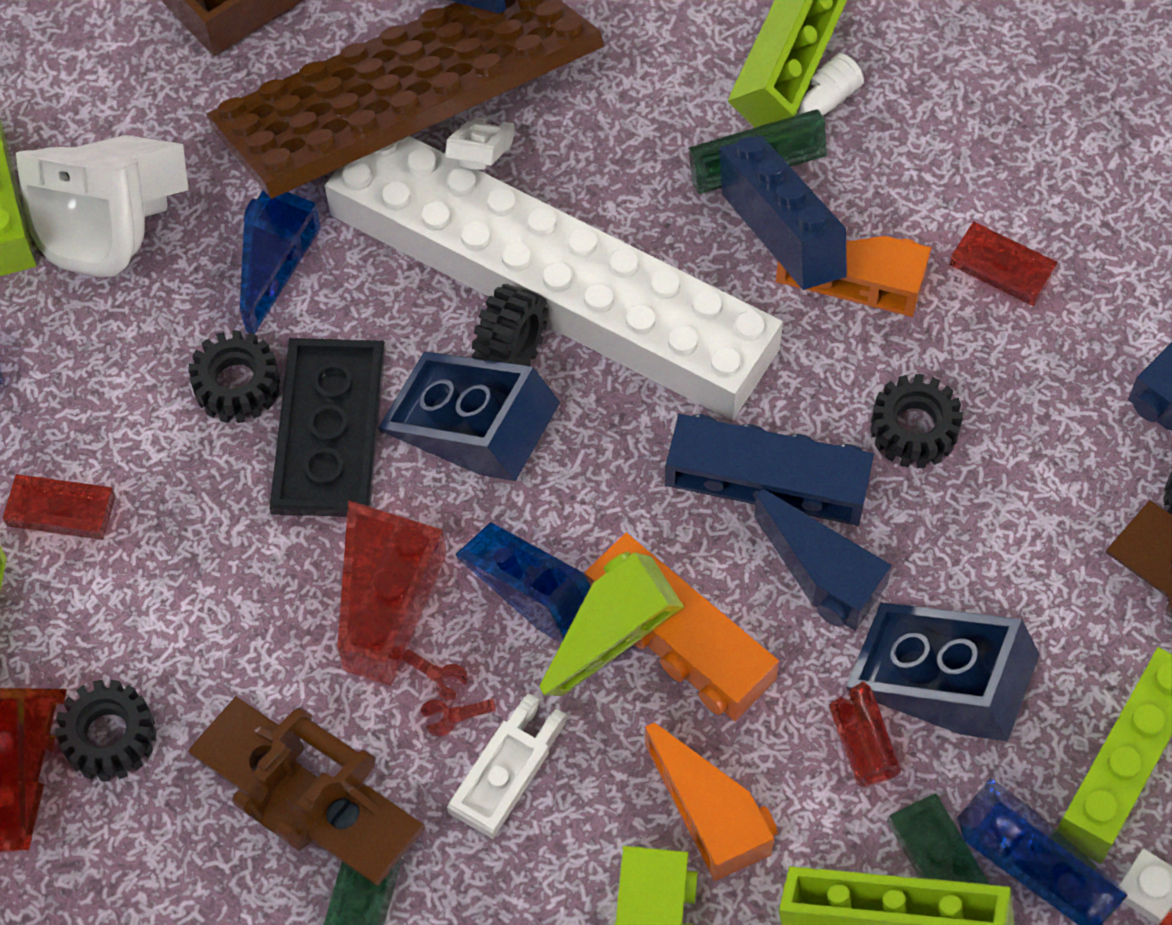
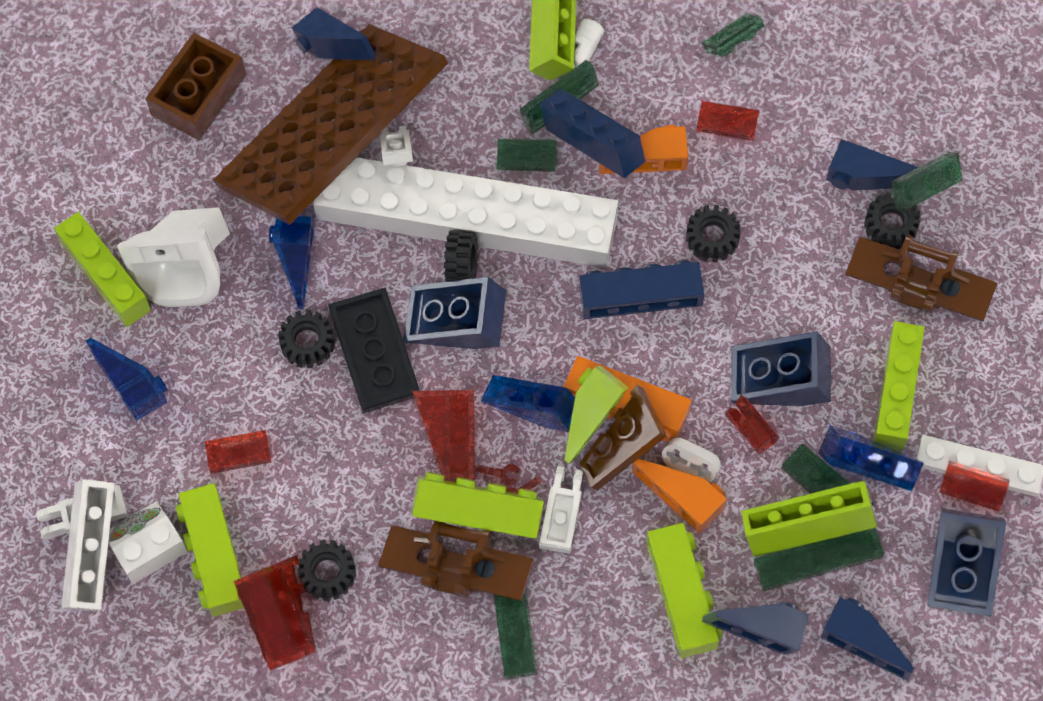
camera: 20 degrees left, 5 degrees up
(370, 710) = (477, 506): none -> lime brick
(651, 688) = (626, 440): none -> reddish brown wing
(675, 219) = (526, 155): none -> clear green plate
(744, 756) = (691, 459): none -> white beam
(828, 567) = (696, 336): dark blue slope -> none
(1075, 141) = (740, 30): none -> clear green plate

